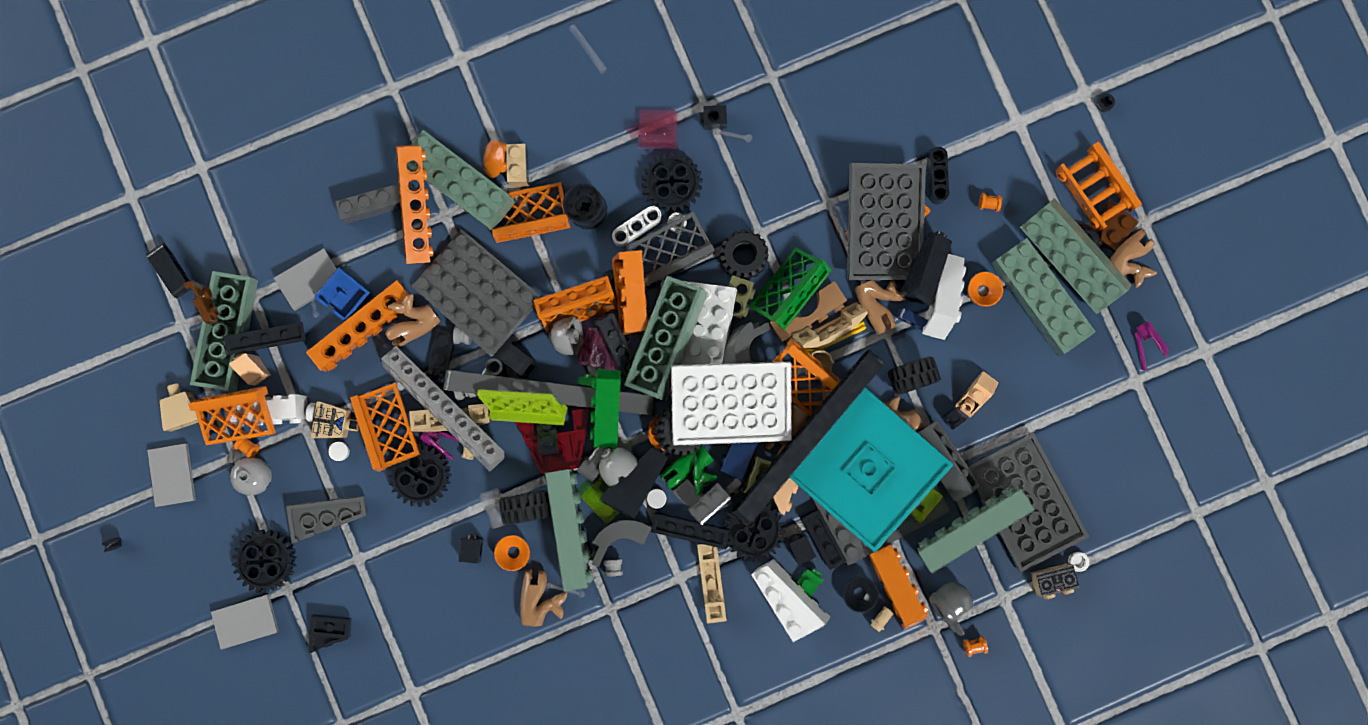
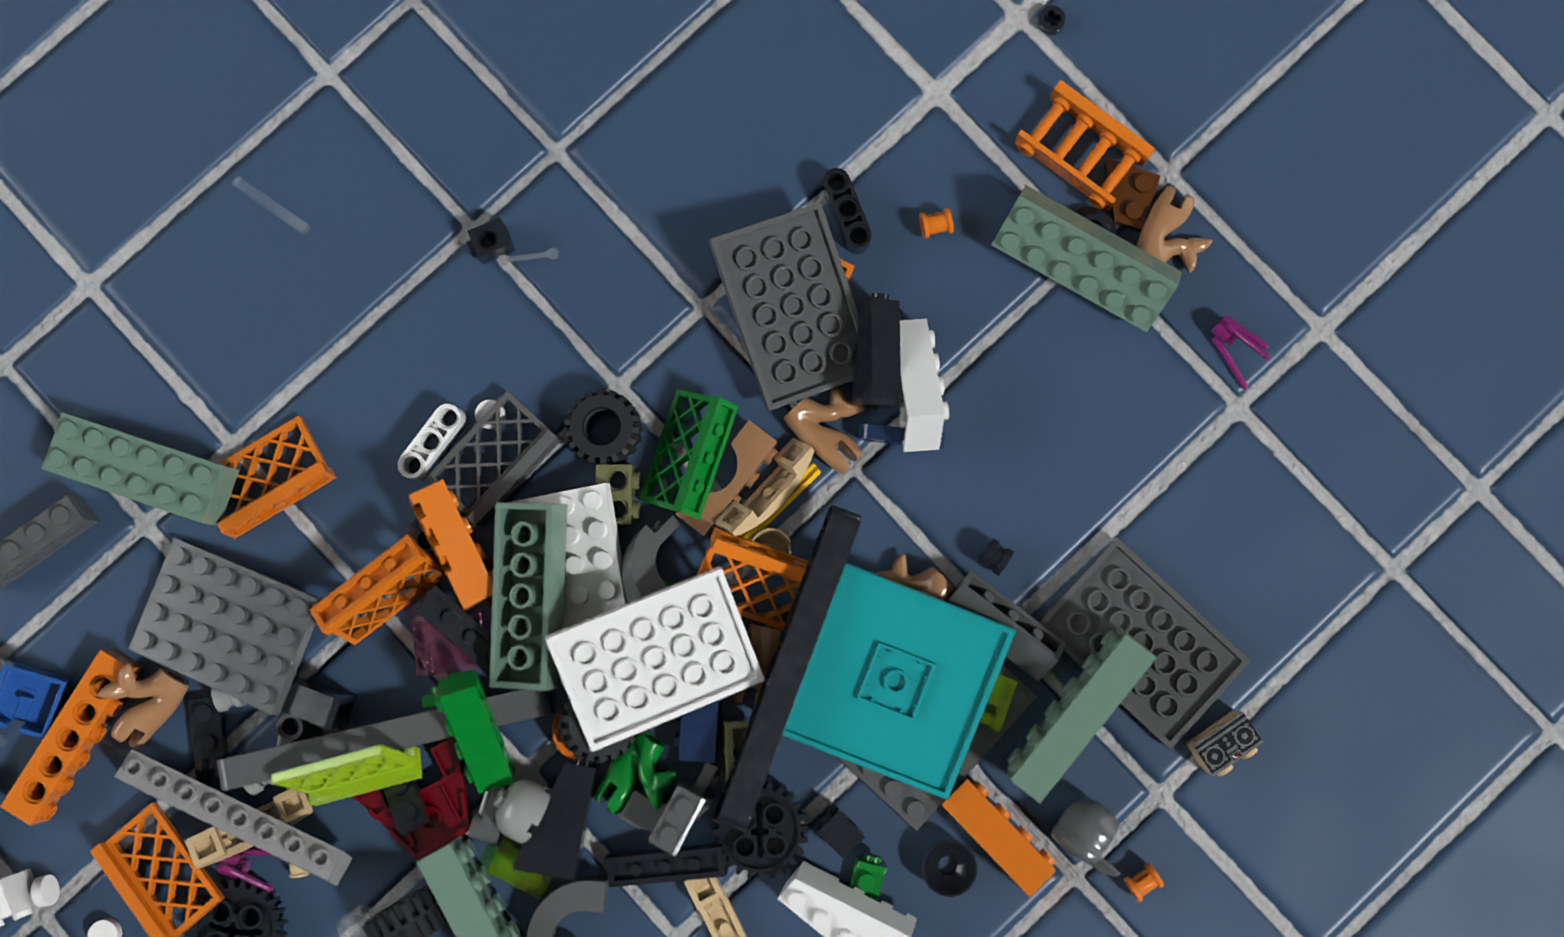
camera: 20 degrees left, 0 degrees up
(332, 422) = (76, 895): tan torso -> none
(413, 254) = (109, 600): orange brick -> none
(494, 158) = (185, 416): orange dish -> none
(517, 165) = (224, 414): tan brick -> none
(566, 336) = (383, 641): light grey cylinder -> none
(574, 206) = (328, 444): black wheel -> none
(656, 498) = (601, 833): white tile -> none
(657, 129) = (414, 288): clear pink bracket -> none
(670, 166) = (471, 383): black gear -> none
(783, 496) = (784, 763): light nougat slope -> none
(824, 539) = (868, 805): black plate -> none
(881, 619) = (993, 892): tan pin -> none
(914, 375) = (913, 518): black tyre -> none
(977, 394) = (1016, 510): light nougat slope -> none
(994, 287) = (981, 340): orange piece -> none
(1043, 297) = (1061, 335): sand green brick -> none
(1079, 561) = (1249, 701): white tile -> none

